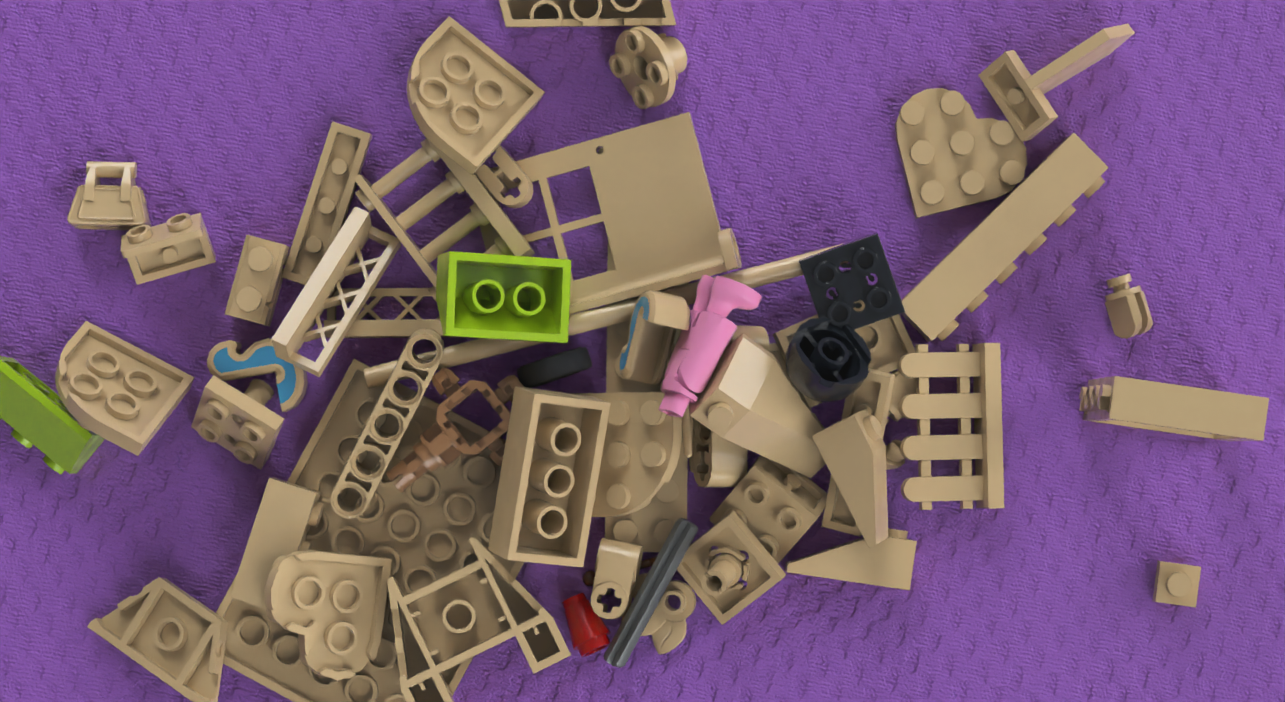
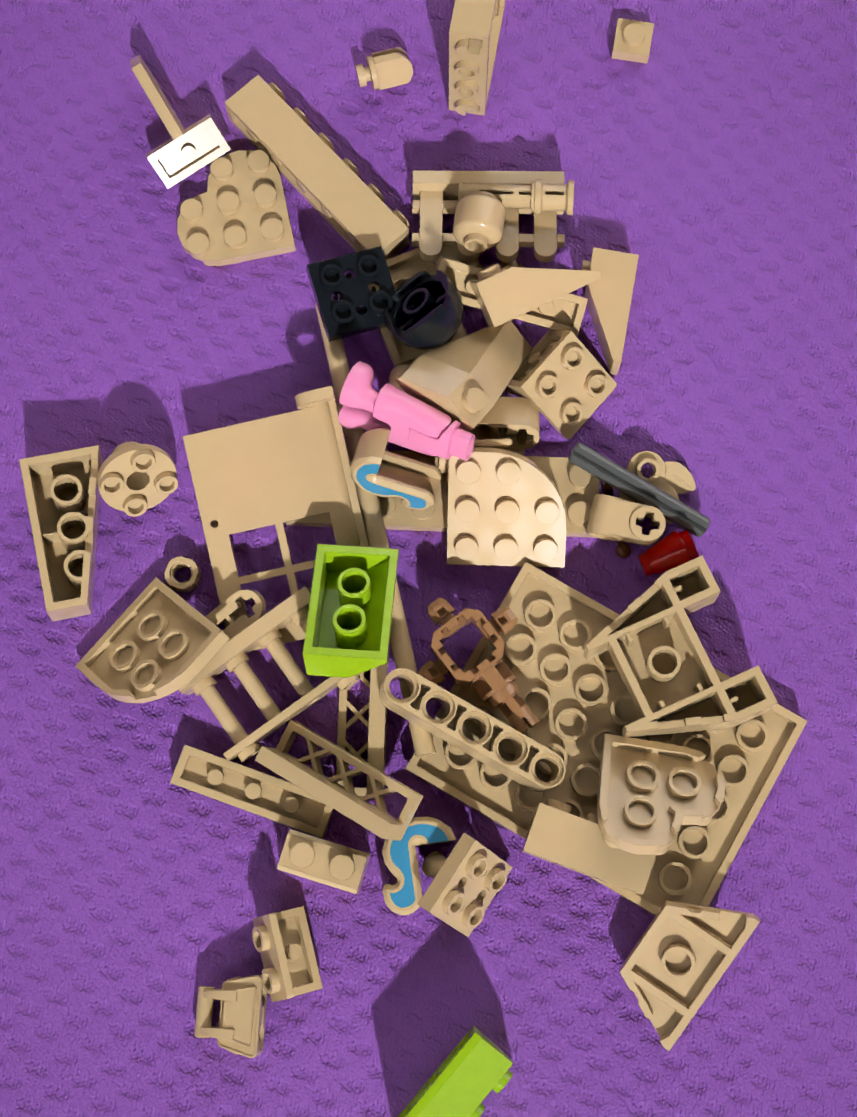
camera: 85 degrees left, 10 degrees down
(117, 387) = (427, 1009): tan plate -> none
(549, 106) = (177, 563): none -> tan axle
(549, 477) = (529, 572): tan brick -> none
(554, 367) = (421, 571): black tyre -> none
(717, 576) = (638, 421): tan plate -> none
(934, 416) = (479, 220): none -> tan head
(970, 405) = (537, 196): none -> tan pin

